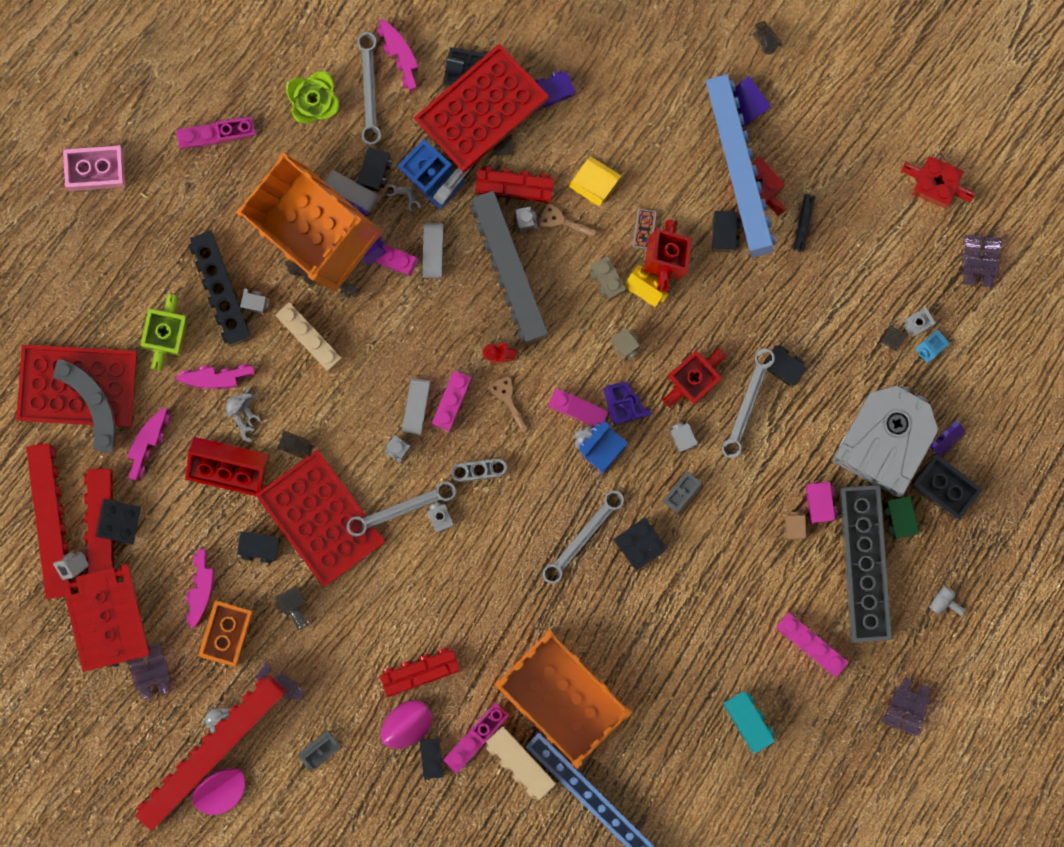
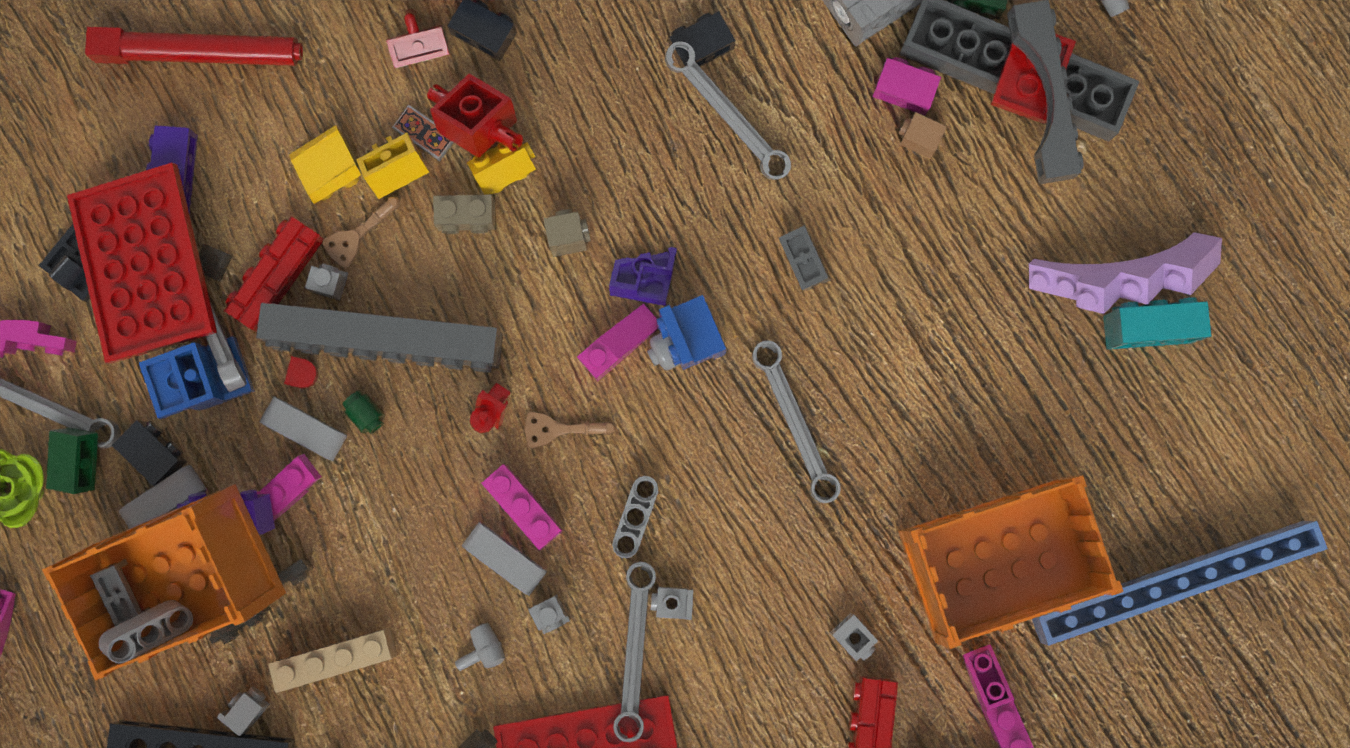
camera: 65 degrees left, 0 degrees up
(279, 233) = (130, 631): none -> light grey beam
(286, 198) = (117, 593): none -> dark grey hinge
(347, 128) = (72, 460): none -> dark green brick
(358, 423) = (487, 649): none -> light grey piece
(404, 191) = (201, 428): light grey arm -> none
(460, 280) = (363, 412): none -> dark green brick
(464, 232) = (301, 373): none -> red tile
(475, 627) = (866, 643): none -> light grey brick
(523, 766) = (1067, 663): tan brick -> none
(614, 221) = (392, 165): none -> yellow brick
(626, 70) = (120, 47): none -> red brick
(640, 544) = (844, 350): black brick -> none
(683, 437) = (729, 221): light grey brick -> none
(694, 365) = (669, 151): red brick -> none
(695, 198) = (417, 44): none -> plate
(768, 696) = (1138, 280): none -> lavender arch
(811, 645) = (1090, 191): dark pink brick -> none
(861, 572) = (1020, 86): none -> red plate
(882, 558) = (1034, 35): none -> dark grey arch
(906, 701) = (1225, 110): clear purple hips -> none

